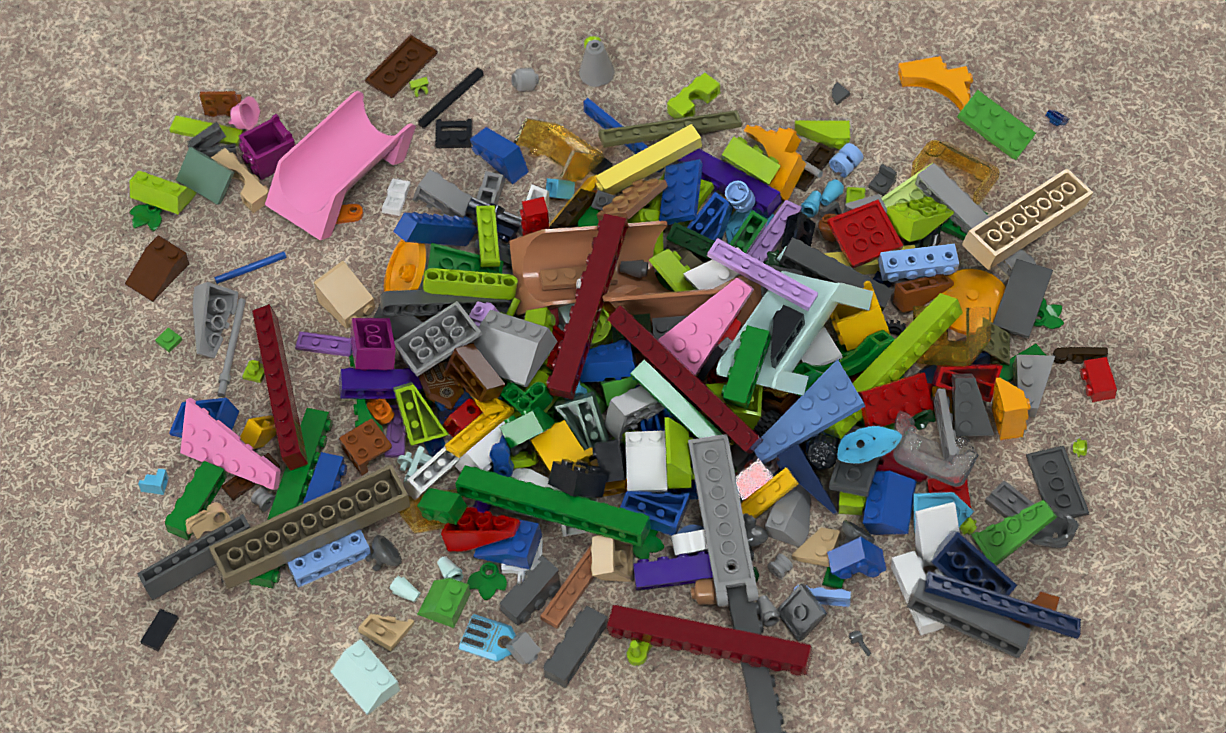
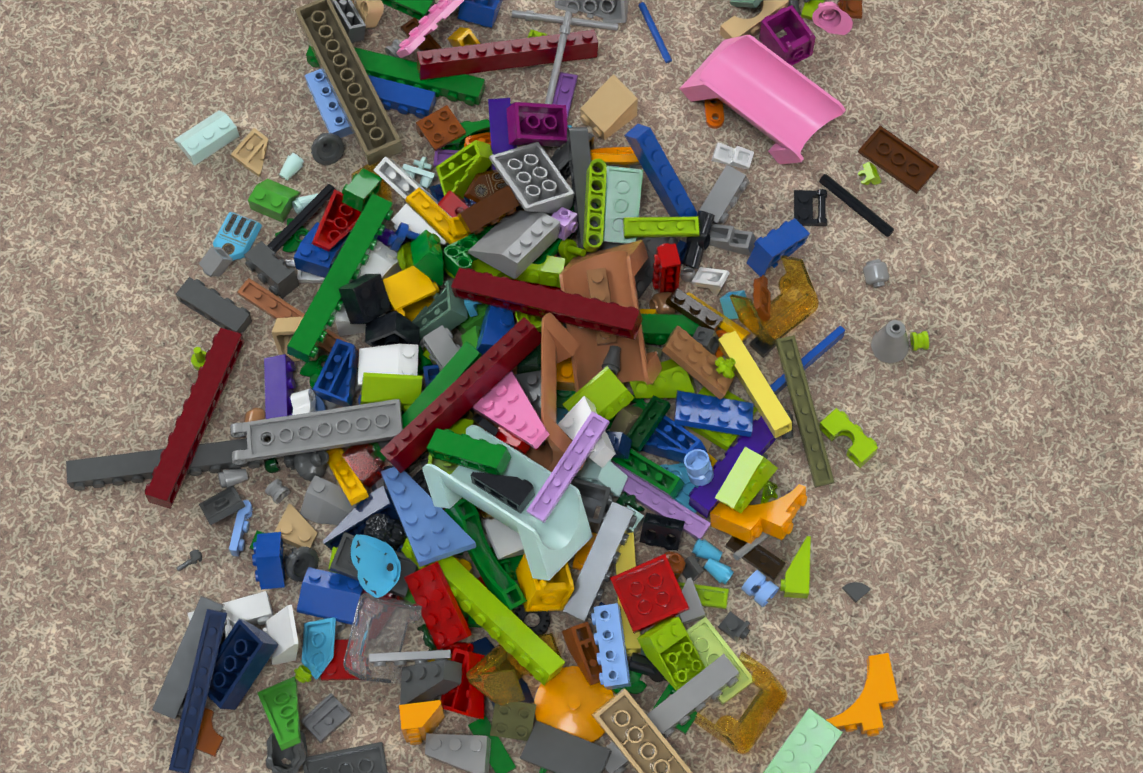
camera: 90 degrees right, 10 degrees up
(261, 325) = (565, 31): none -> light grey bar
(469, 568) = (301, 218): none -> black axle
(538, 169) = (762, 297): none -> dark orange hinge
(634, 179) = (725, 366): none -> lime plant

